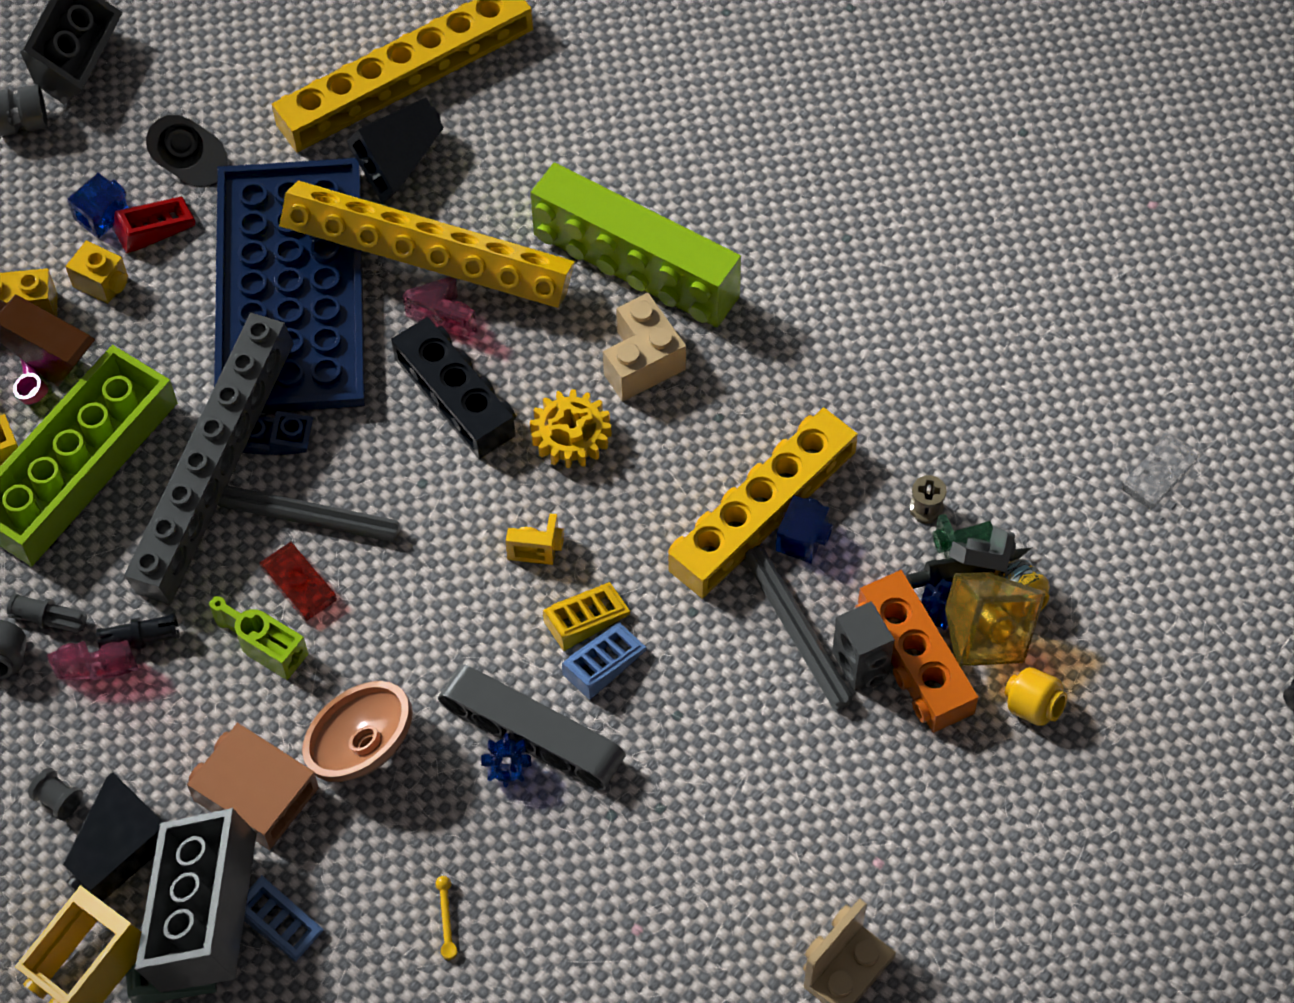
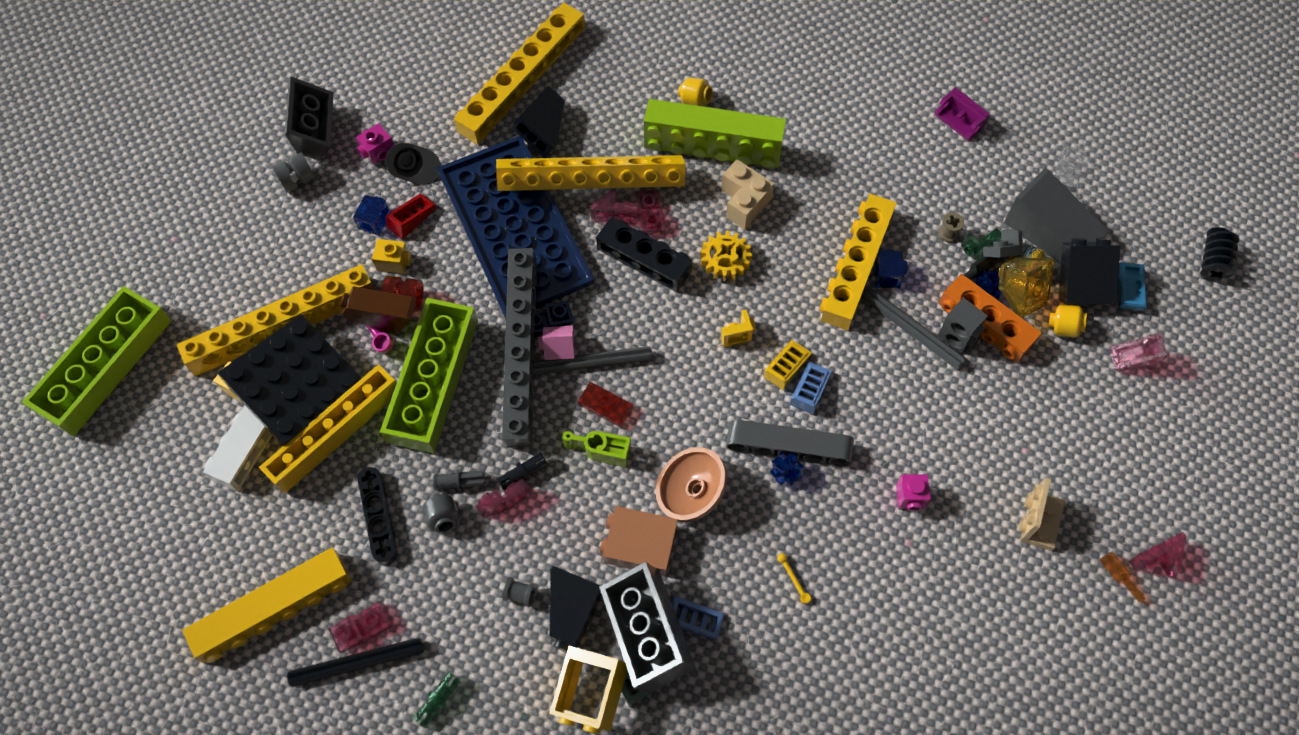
camera: 20 degrees left, 5 degrees up
(99, 324) = (409, 287): none -> clear red wheel
(145, 103) = (374, 143): none -> dark pink brick
(269, 470) = (557, 342): none -> bright pink brick
(494, 330) = (650, 212): none -> clear pink slope
(643, 176) = (695, 92): none -> yellow head
(672, 857) = (913, 491): none -> dark pink brick
(1033, 337) = (962, 114): none -> magenta hinge
(1090, 543) = (1052, 215): none -> dark grey slope
(1096, 632) = (1089, 271): none -> black brick
(1116, 778) = (1139, 352): none -> clear pink slope
(1164, 680) = (1132, 286): none -> dark azure plate

